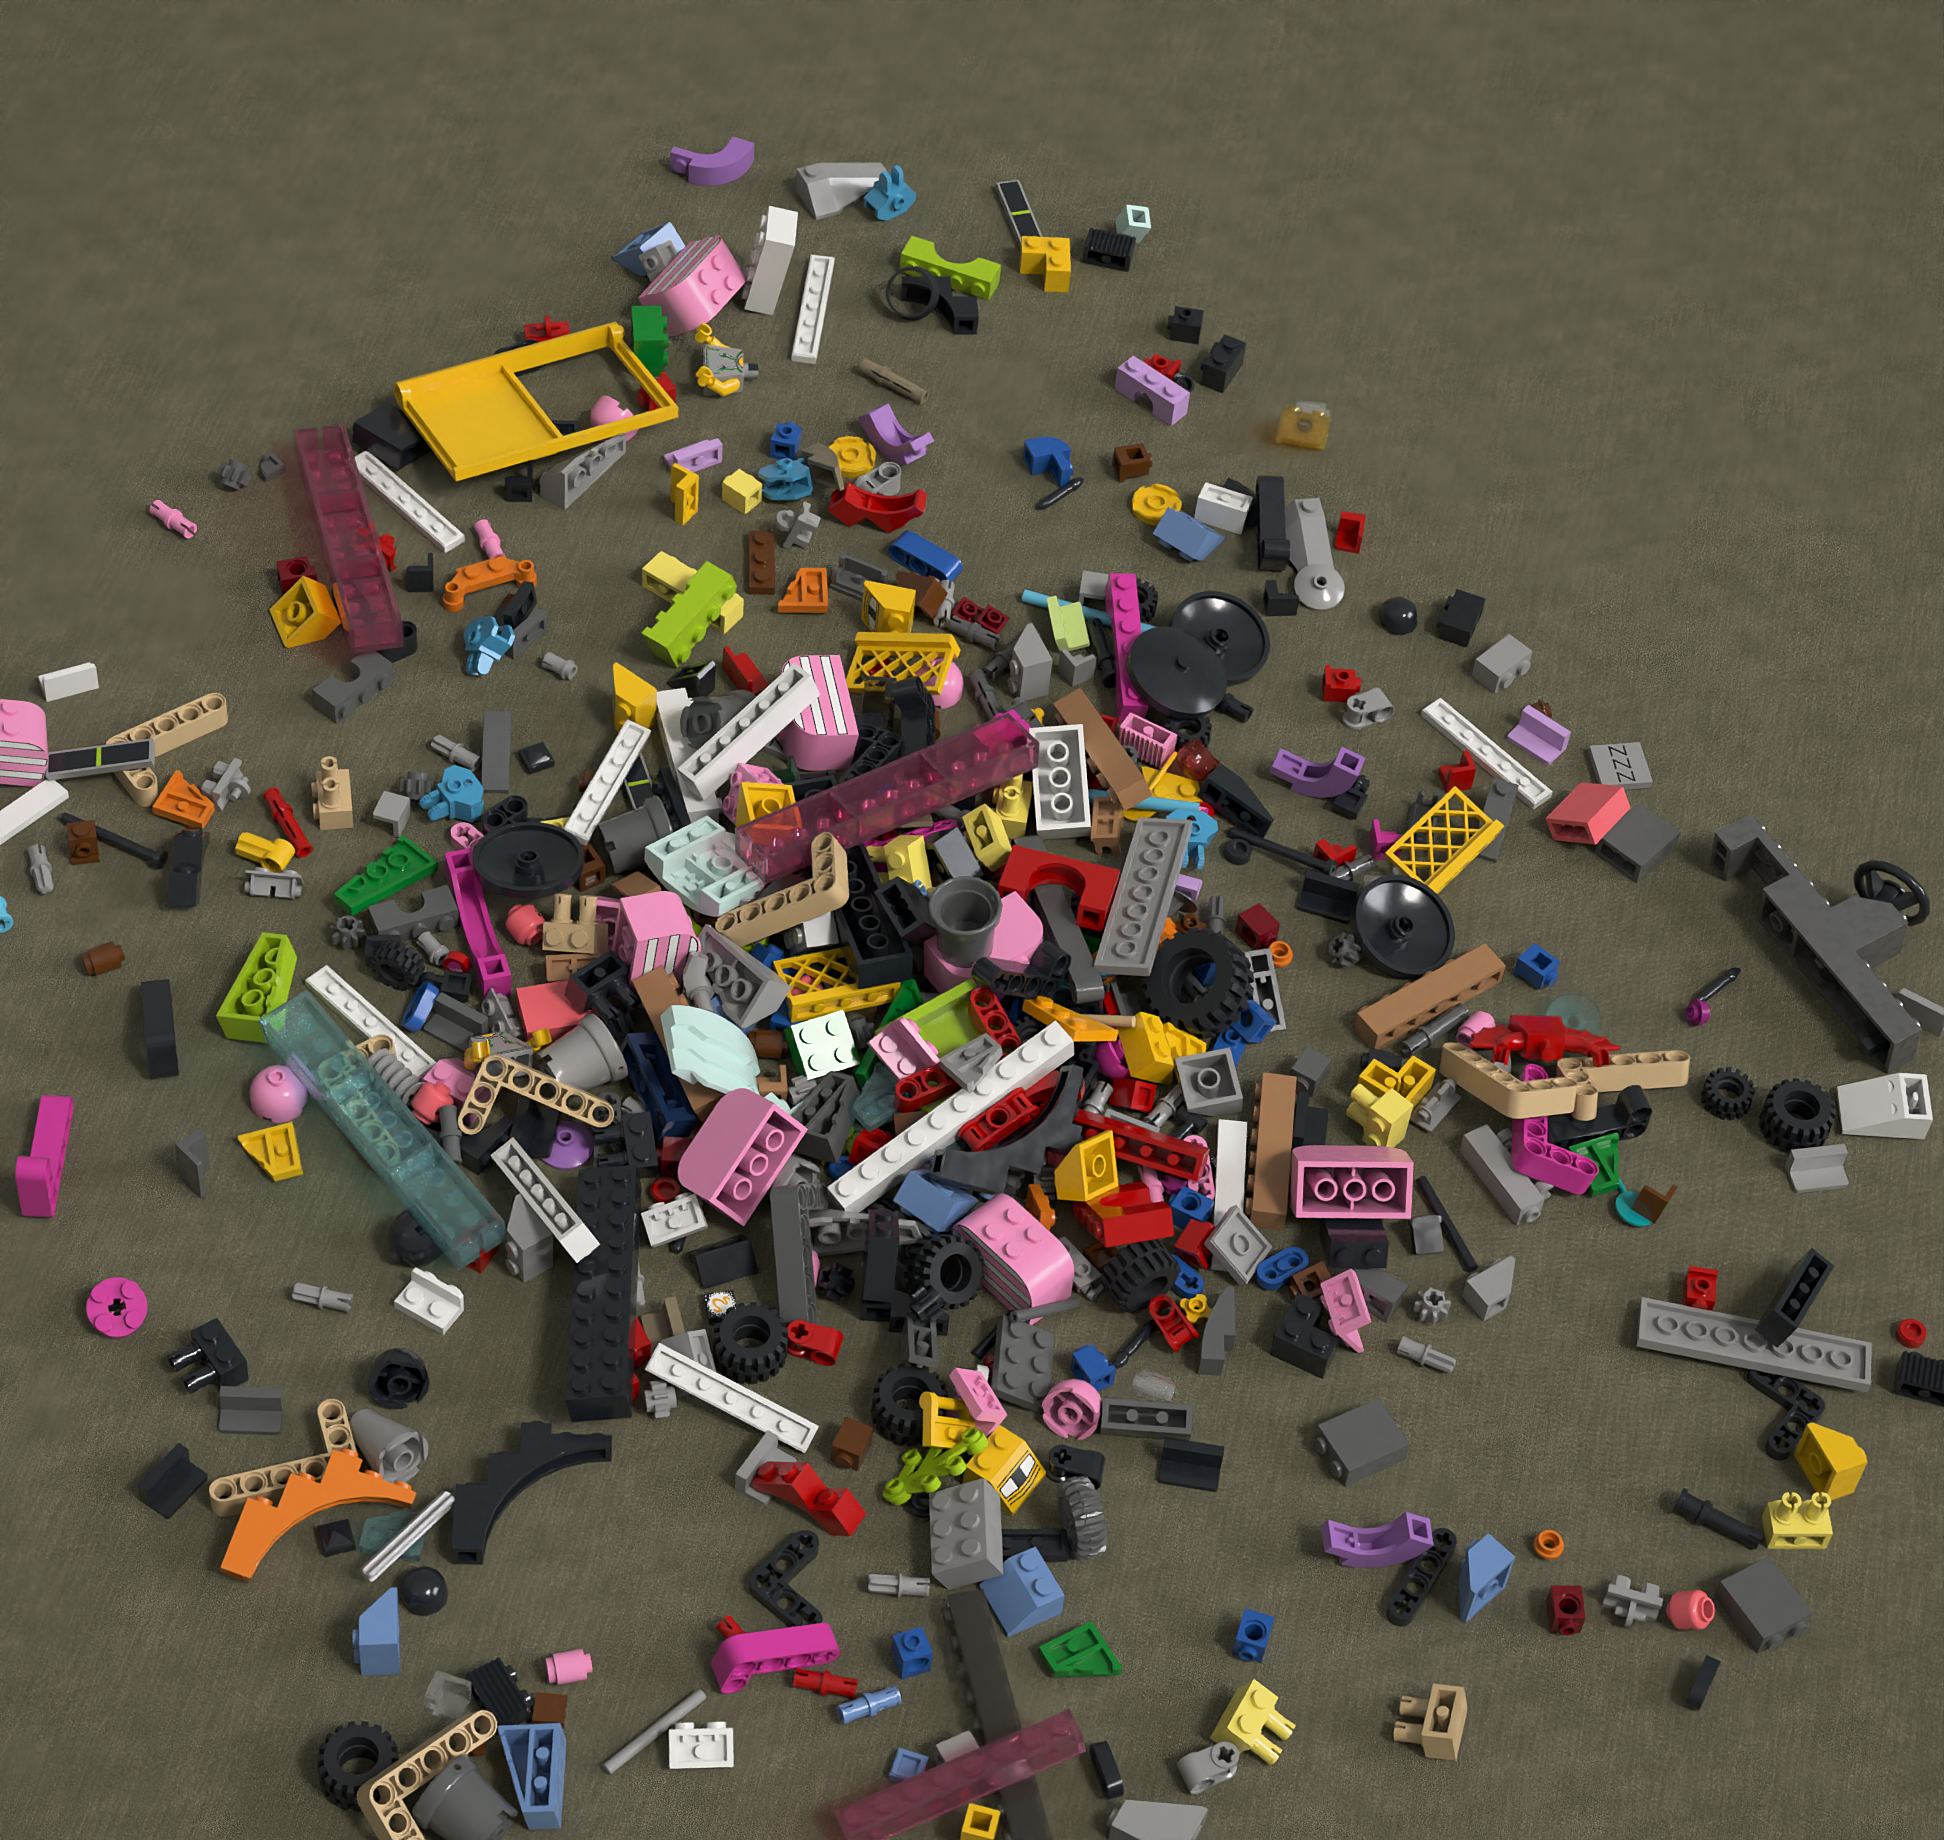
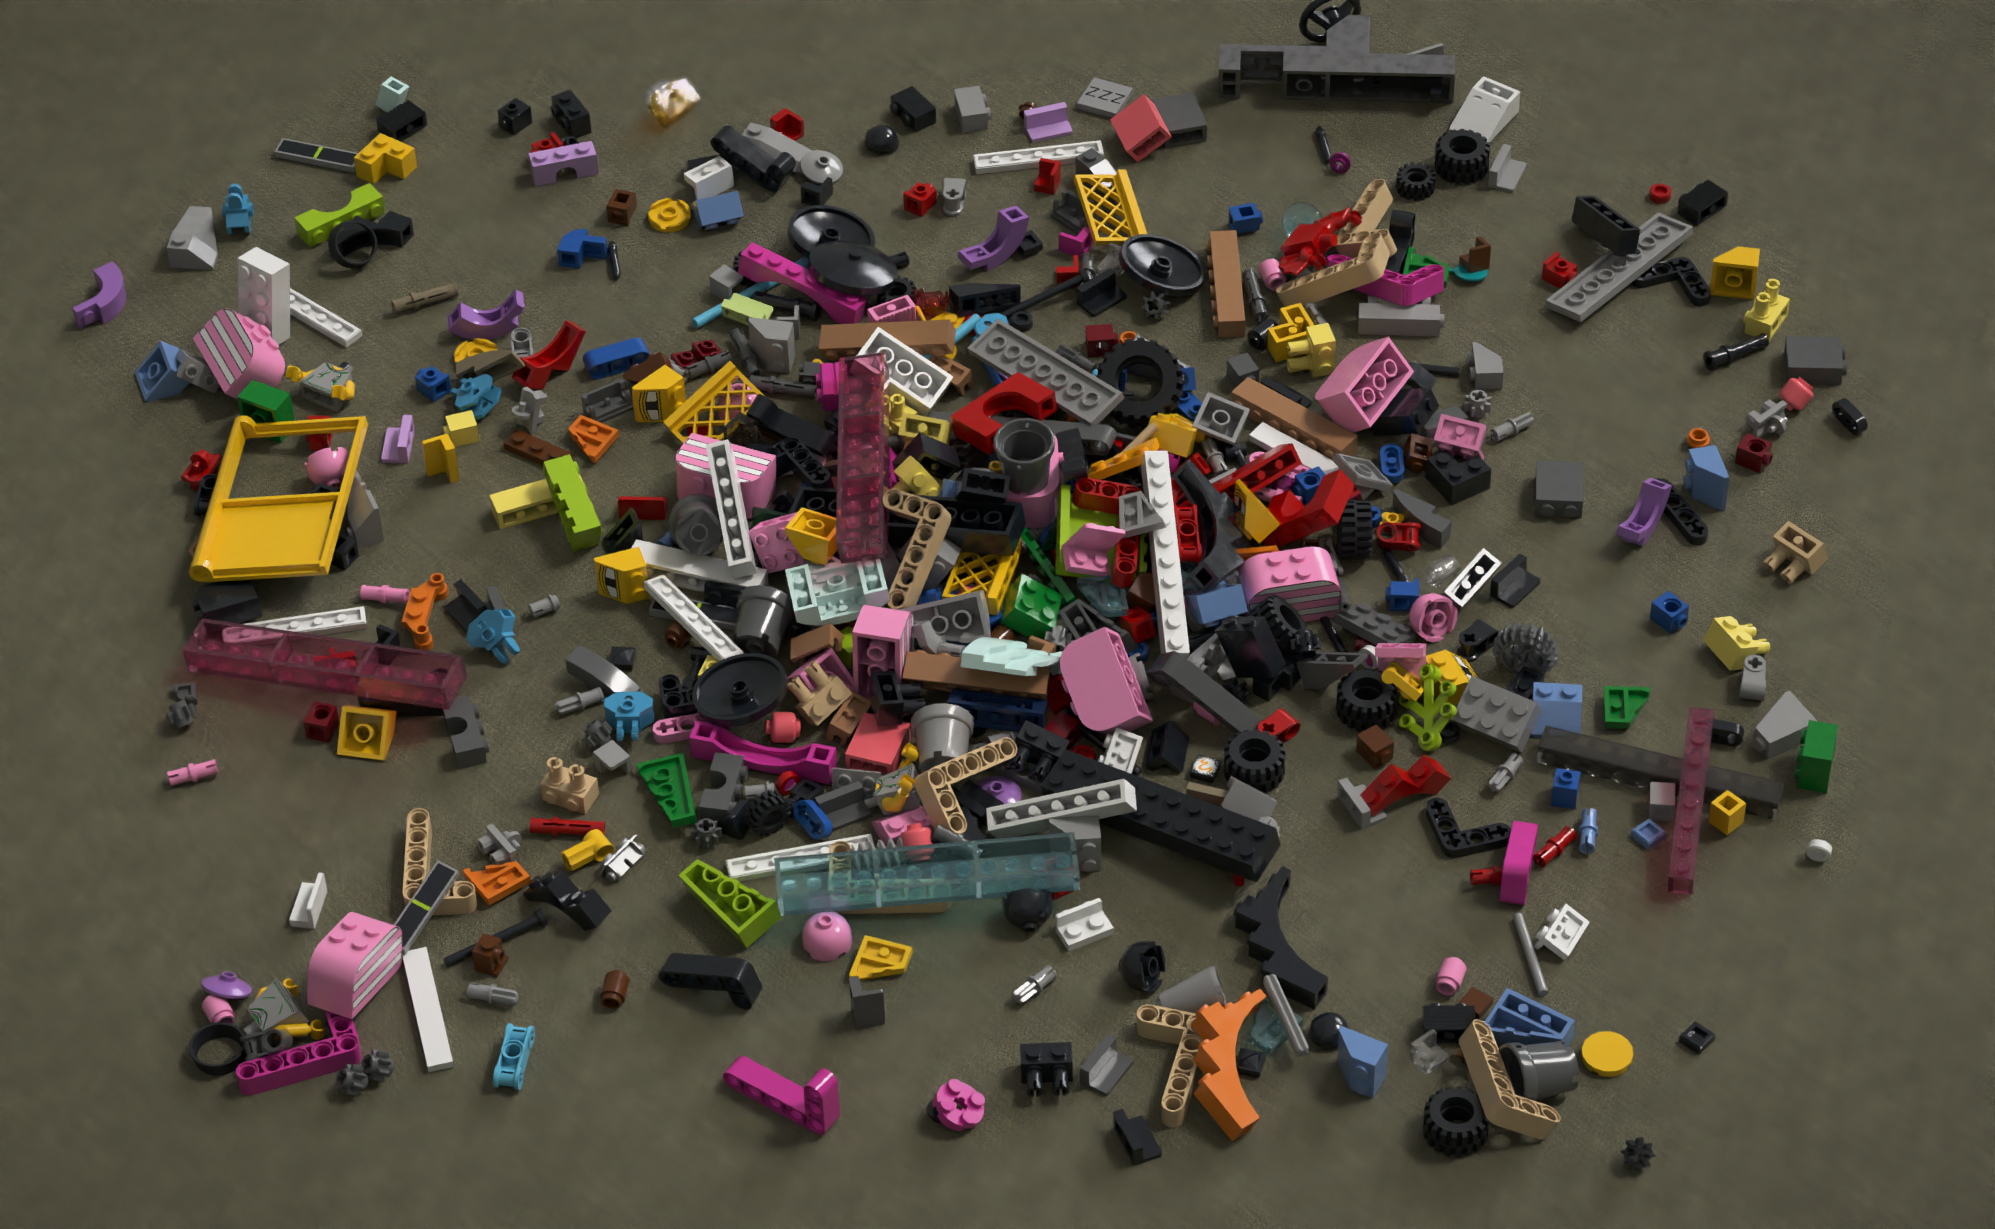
camera: 50 degrees left, 5 degrees down
(731, 1397) = (1296, 788): white tile -> none

